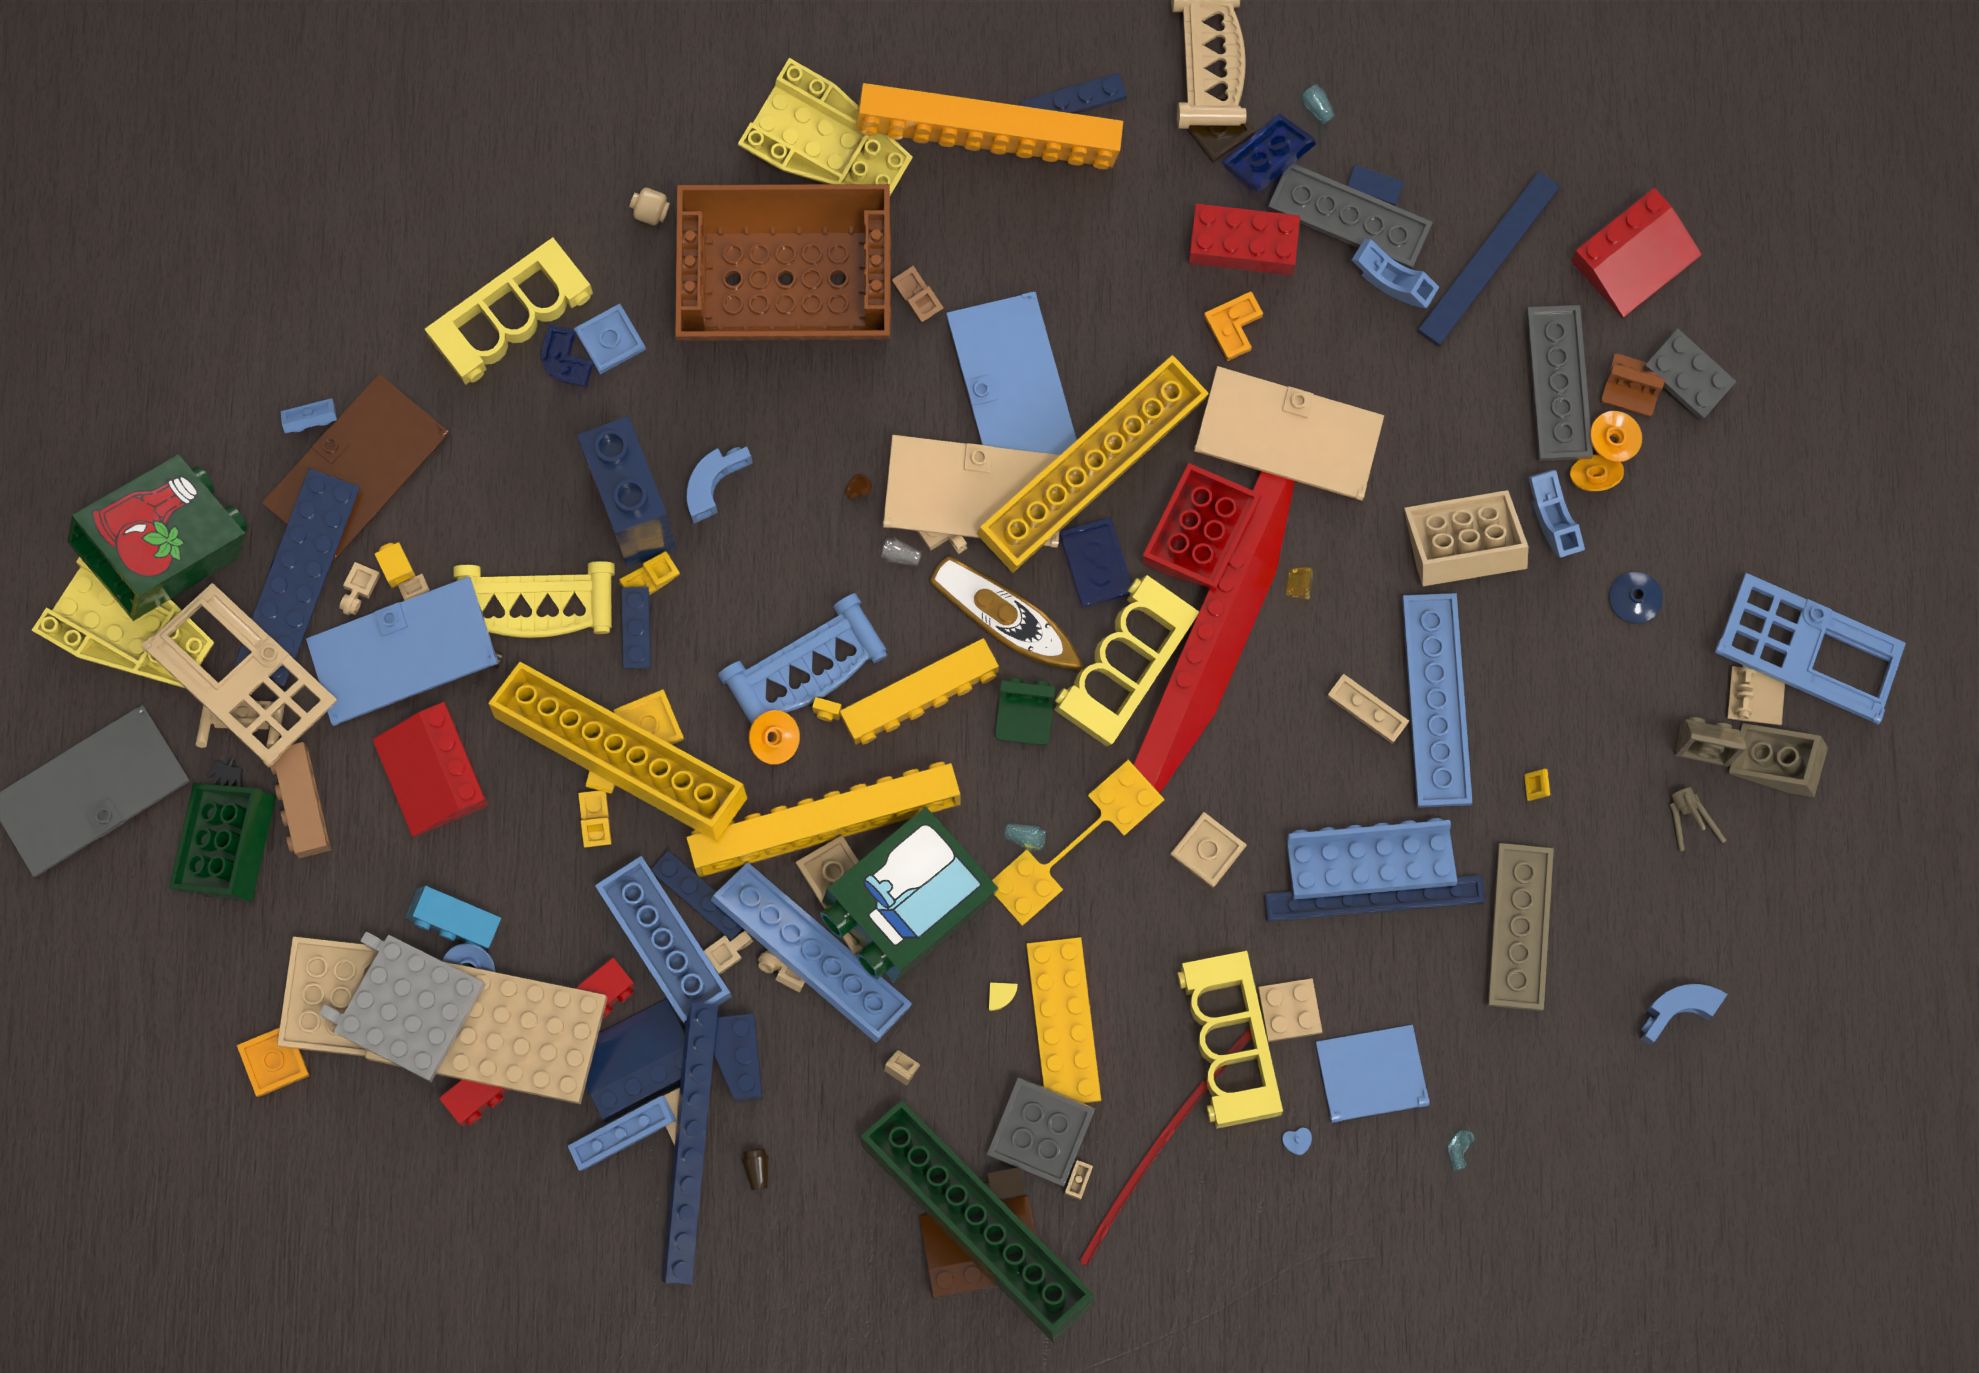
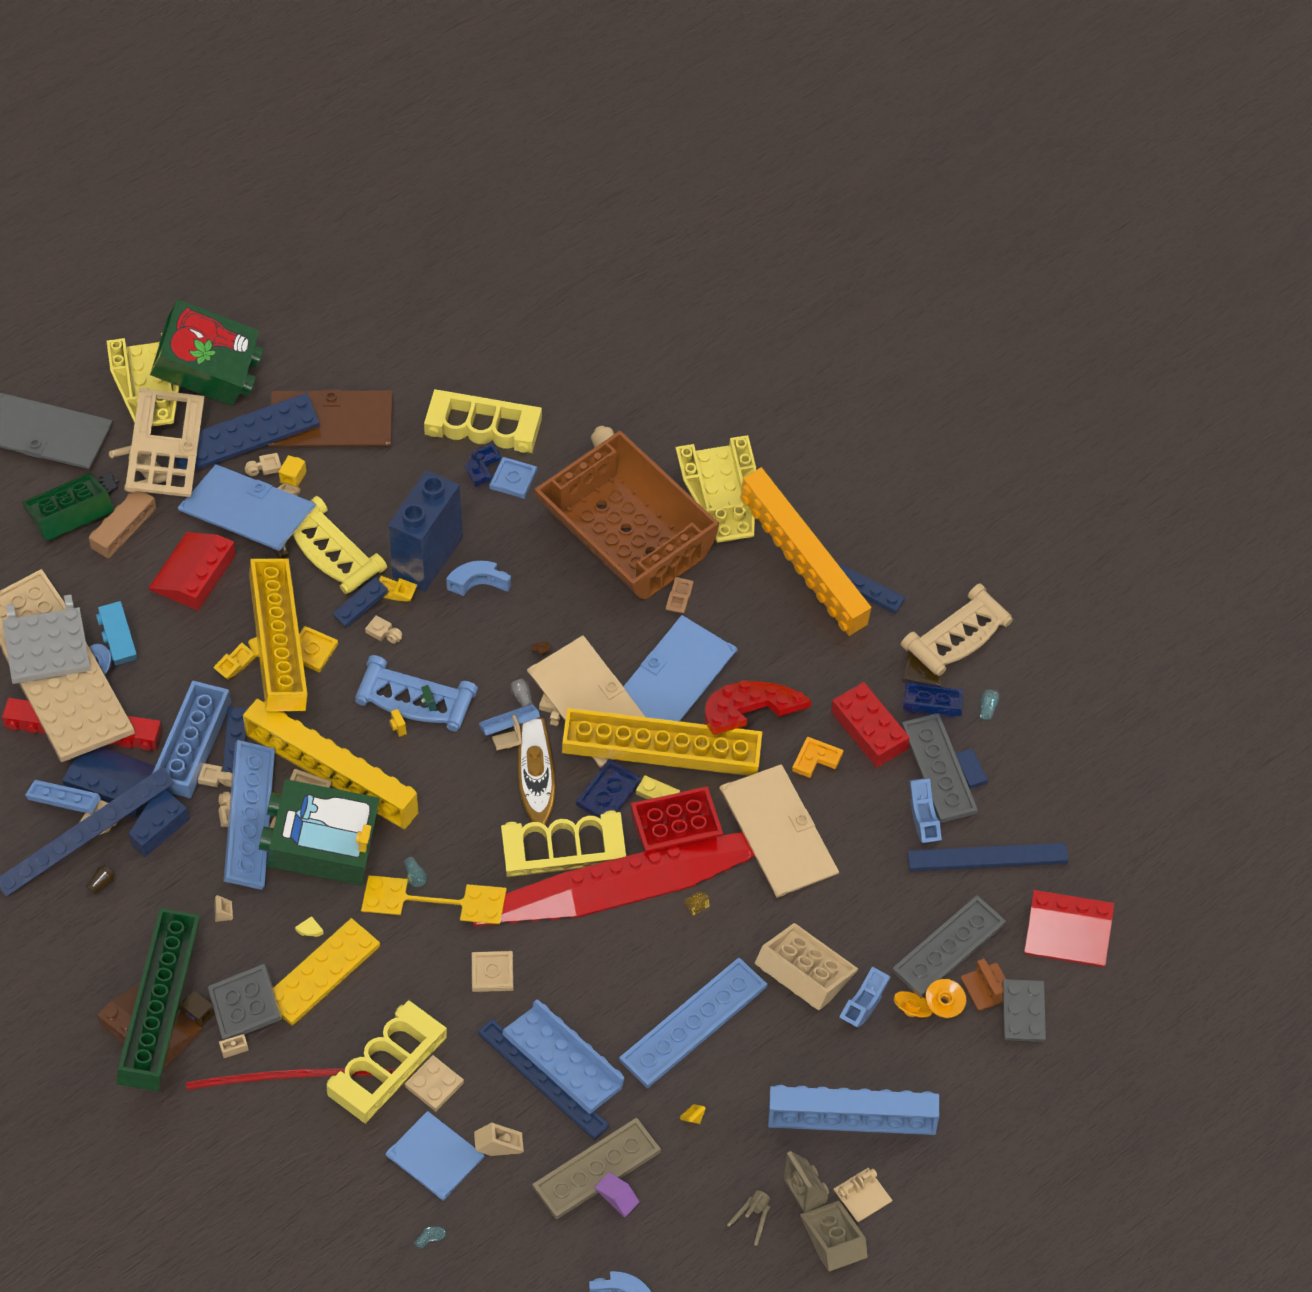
camera: 50 degrees right, 20 degrees down
(308, 415) = (334, 375): medium blue plate -> none
(685, 634) = (380, 628): none -> tan plate
(785, 737) = (360, 698): light orange dish -> none
(830, 656) = (427, 698): none -> dark green plate
(920, 691) = (450, 759): yellow brick -> none
(922, 592) = (505, 720): none -> medium blue tile
(945, 610) = (508, 739): none -> tan bracket
(968, 863) = (363, 837): none -> yellow plate
(1025, 712) = (486, 818): dark green bracket -> none
(1106, 336) = (728, 703): none -> red plate
(1137, 514) = (651, 788): none -> light yellow plate
(1298, 1141) = (358, 1146): medium blue piece -> none
(1368, 708) = (653, 990): tan plate -> none
(1412, 999) = (498, 1140): none -> tan slope
(1566, 931) = (617, 1194): none -> medium lavender slope
(1630, 608) = (854, 1074): dark blue dish -> none
(1673, 624) = (853, 1110): none -> medium blue brick
(1804, 646) = (919, 1194): medium blue door -> none

